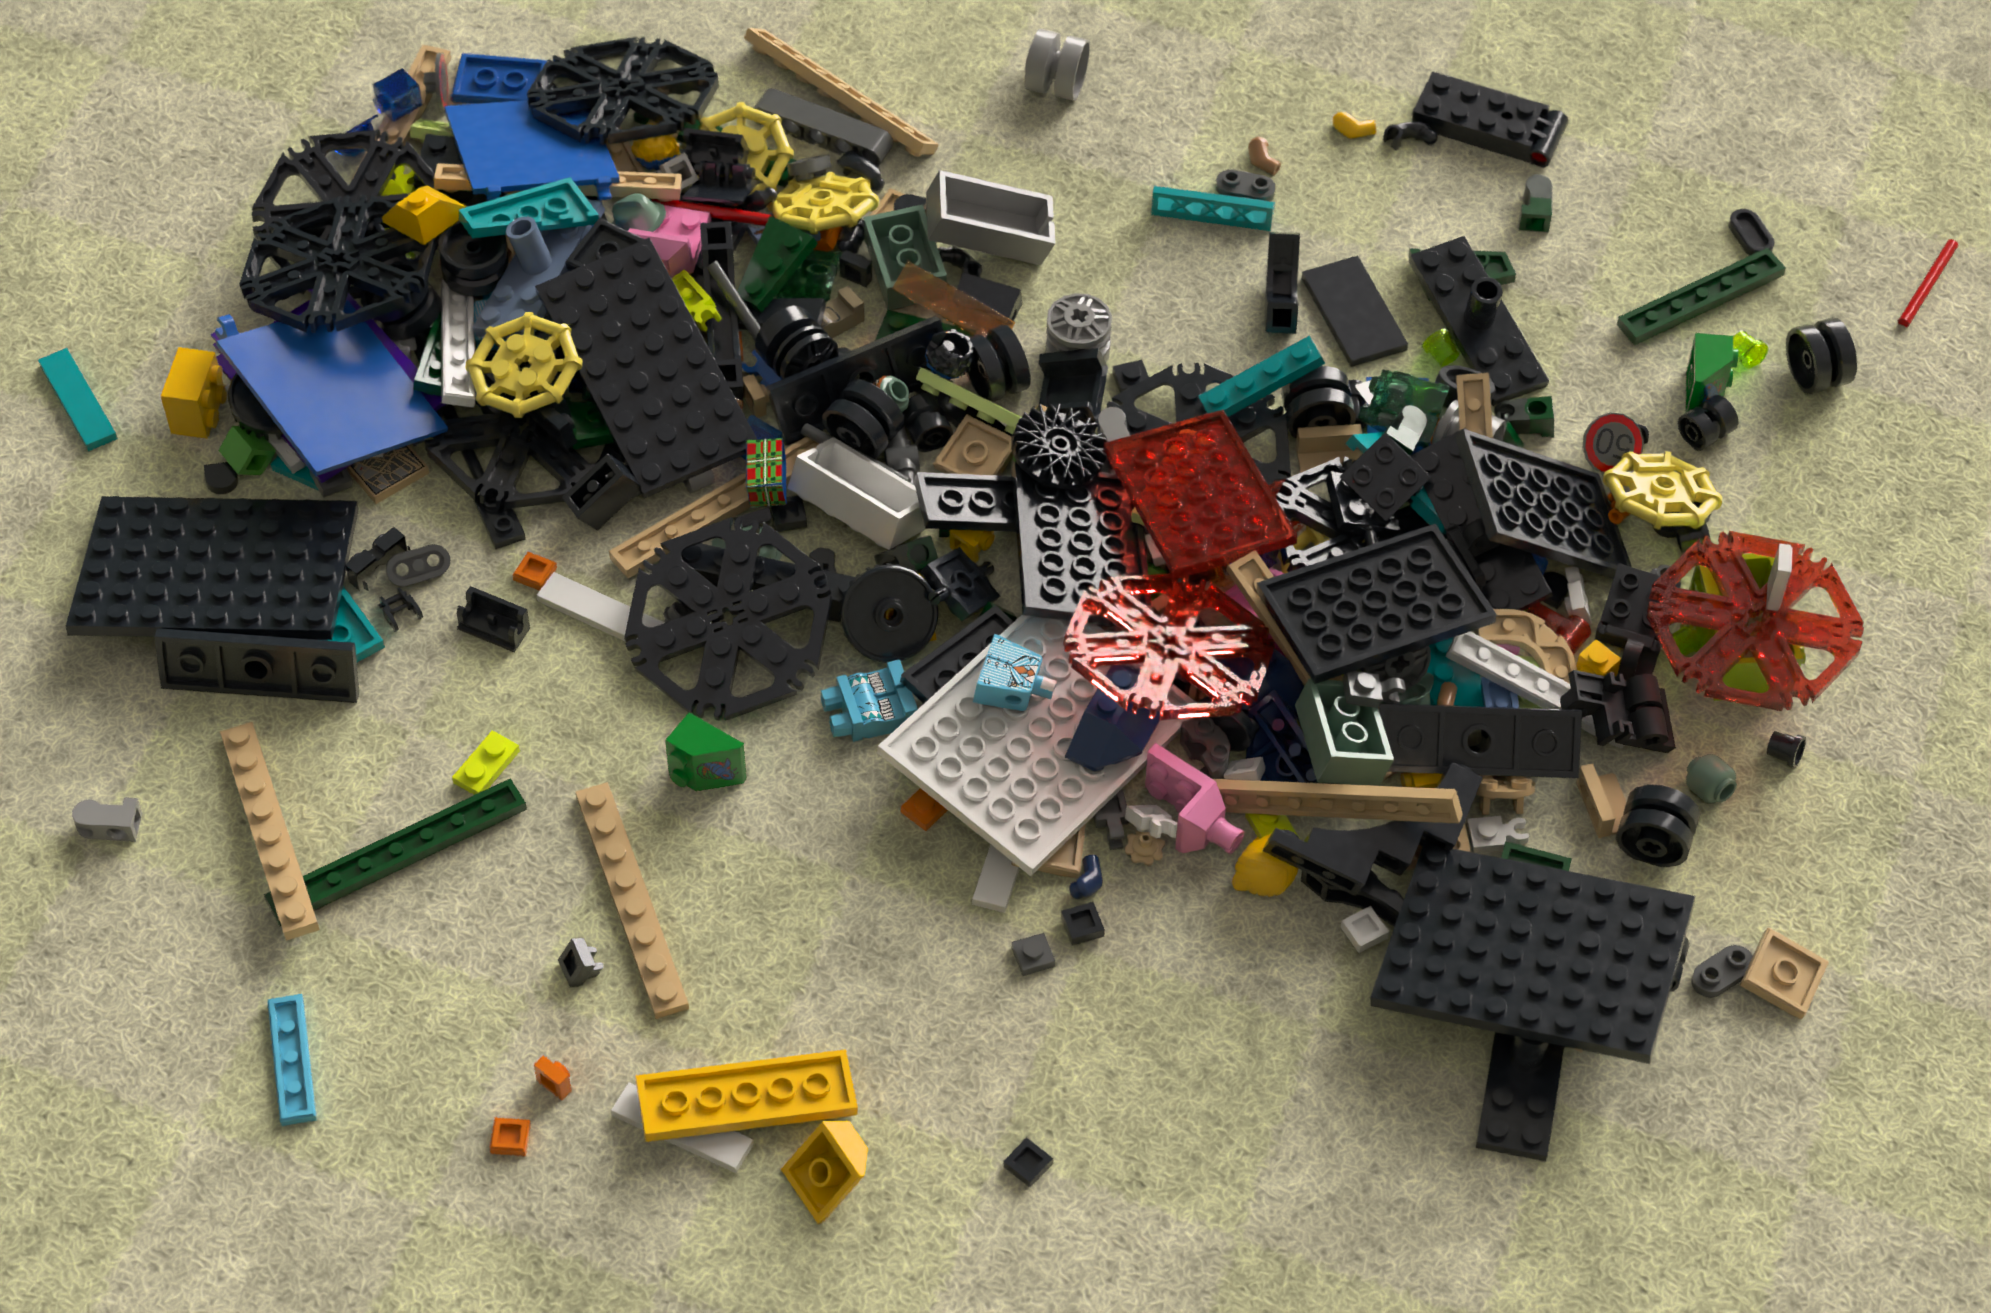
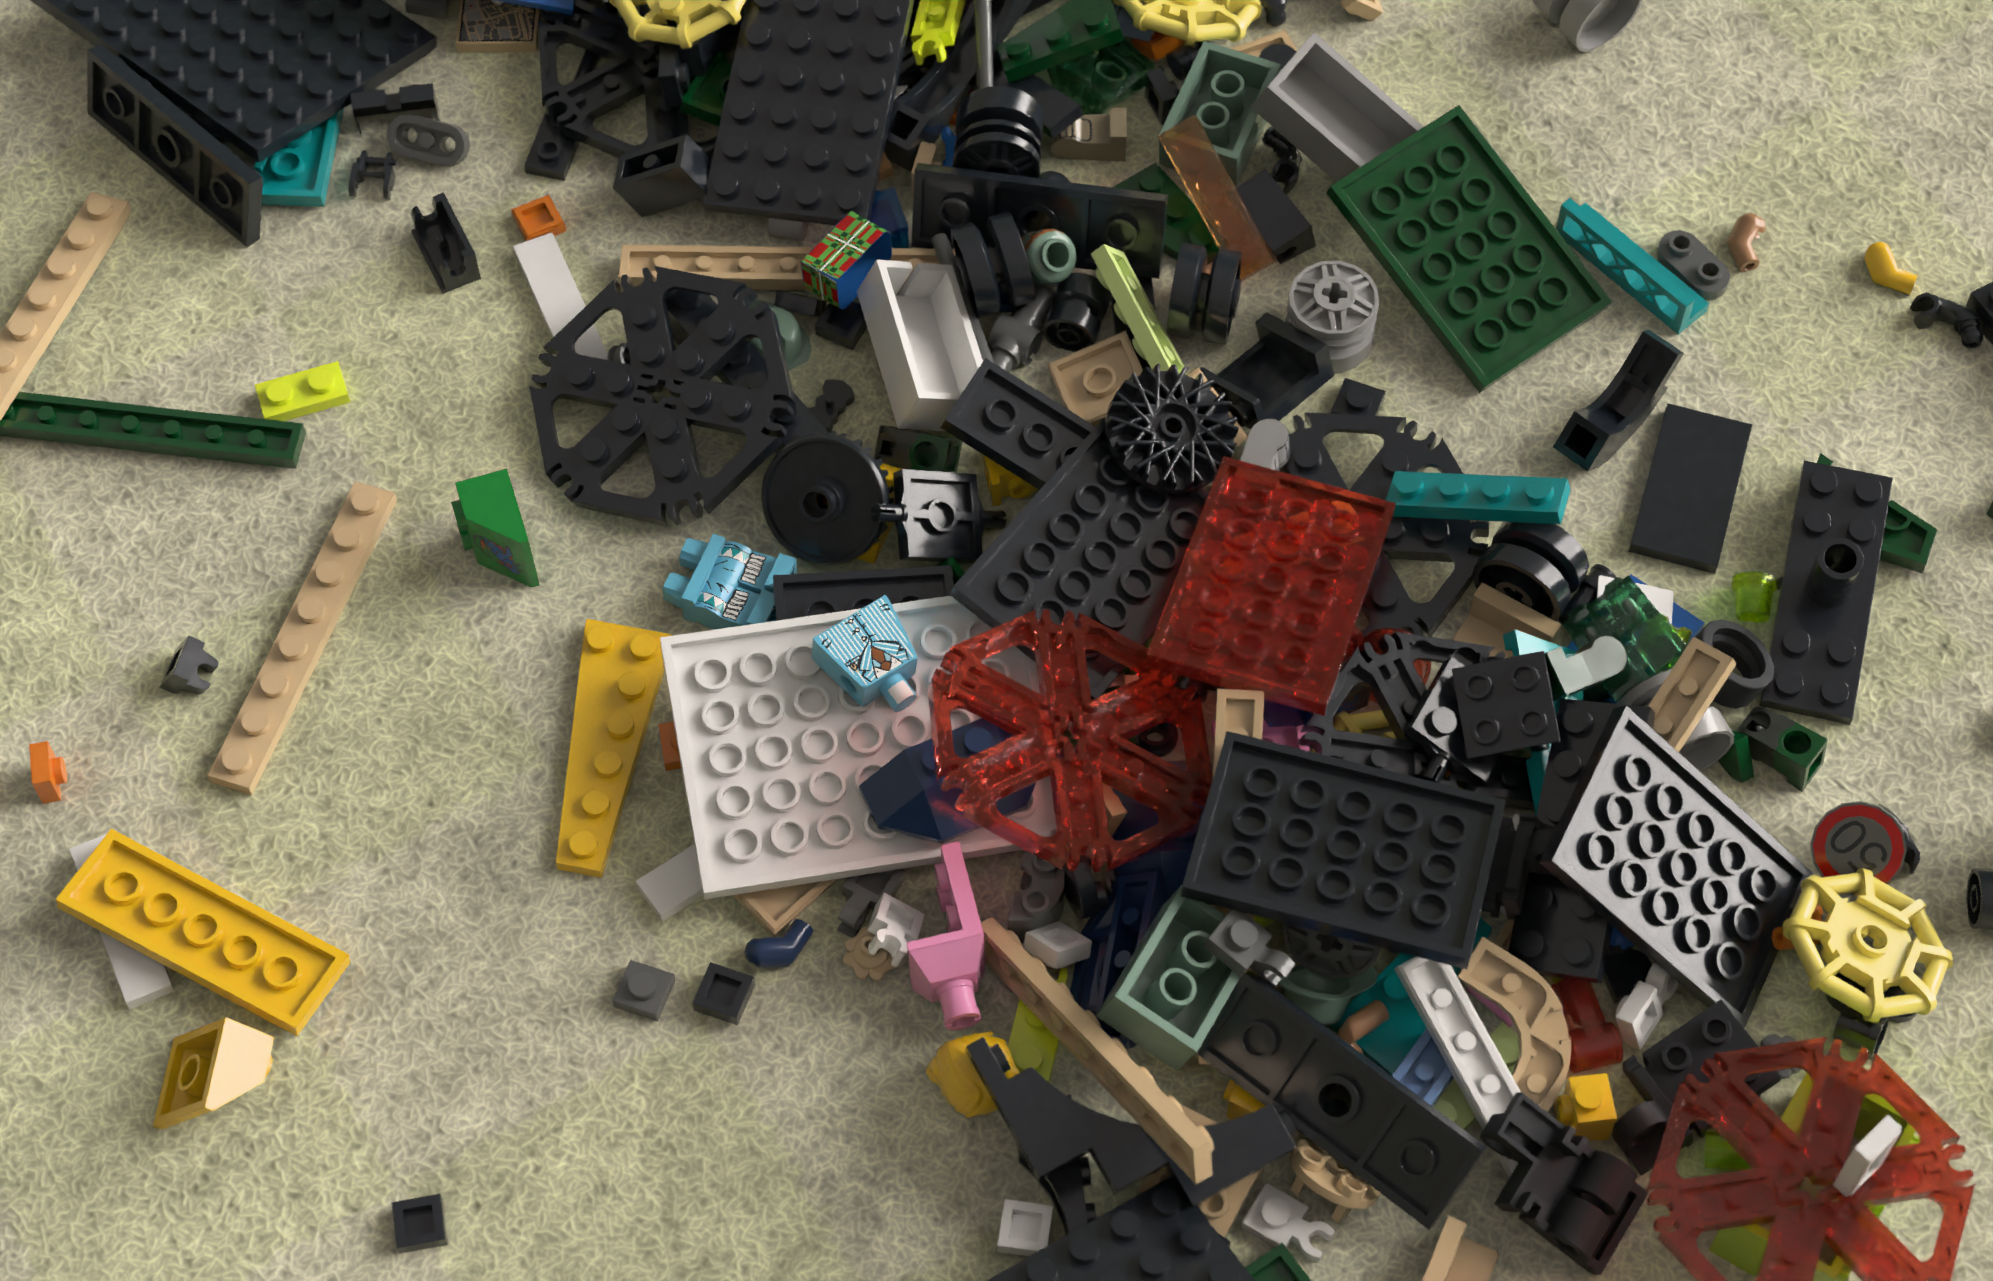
camera: 40 degrees right, 5 degrees up
(865, 819) = (611, 716): none -> yellow wing
(950, 354) = (1147, 249): black piece -> none
(1122, 247) = (1469, 248): none -> dark green plate

